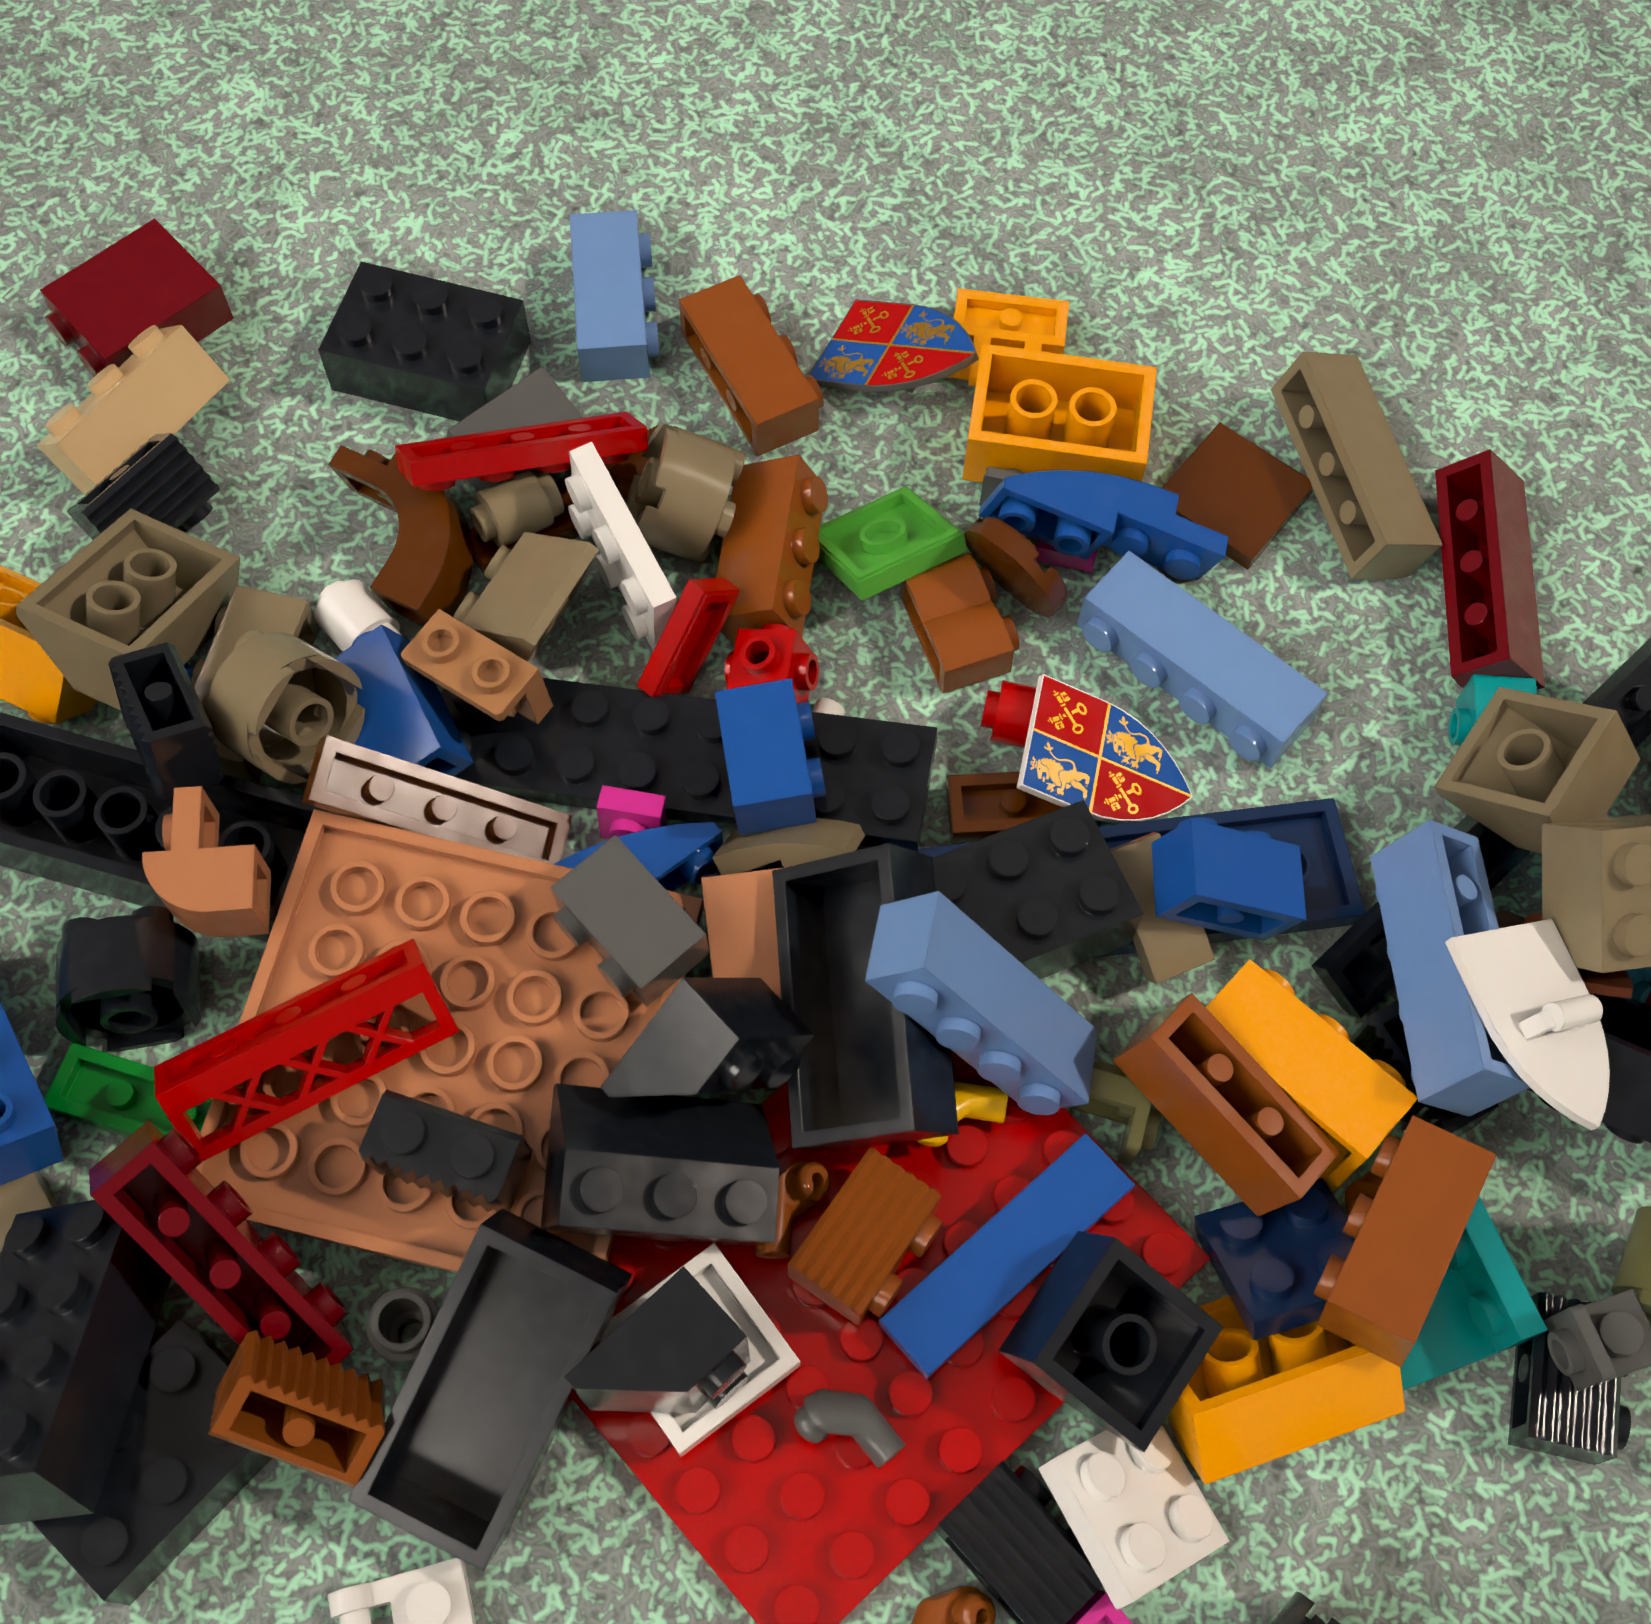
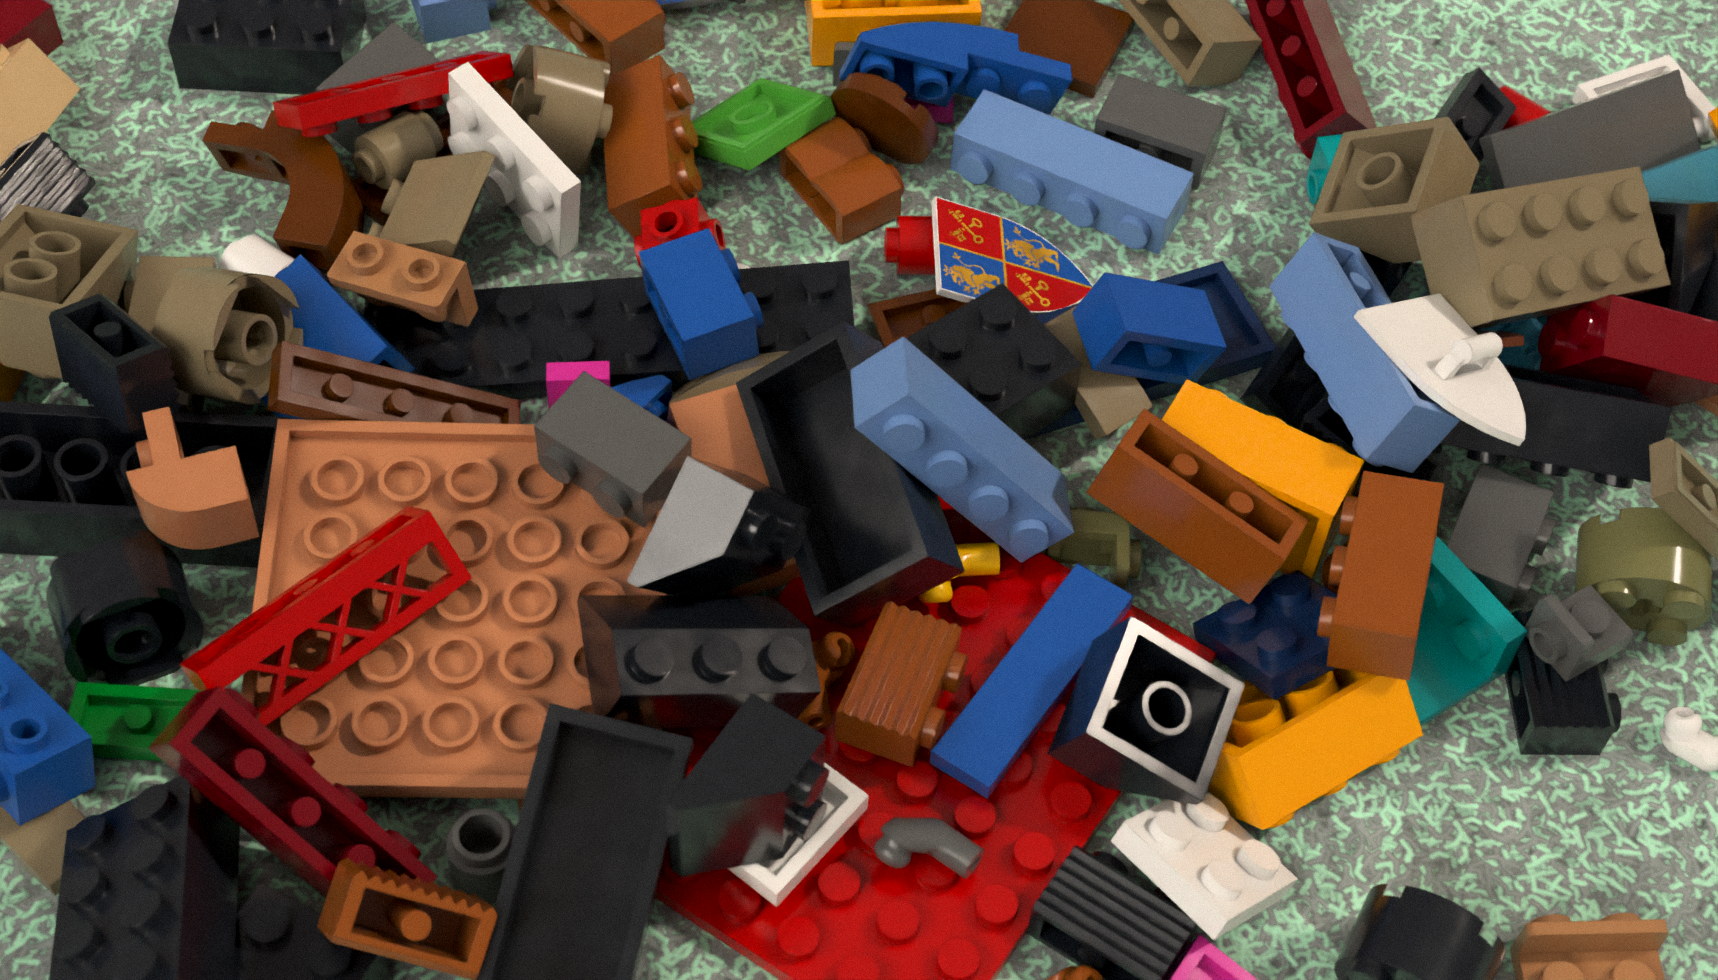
camera: 15 degrees left, 10 degrees down
(445, 1152) = (488, 674): black brick -> none
(688, 636) = (595, 224): red tile -> none
(1307, 625) = (1162, 124): none -> dark grey brick
(1547, 1189) = (1500, 529): none -> dark grey brick

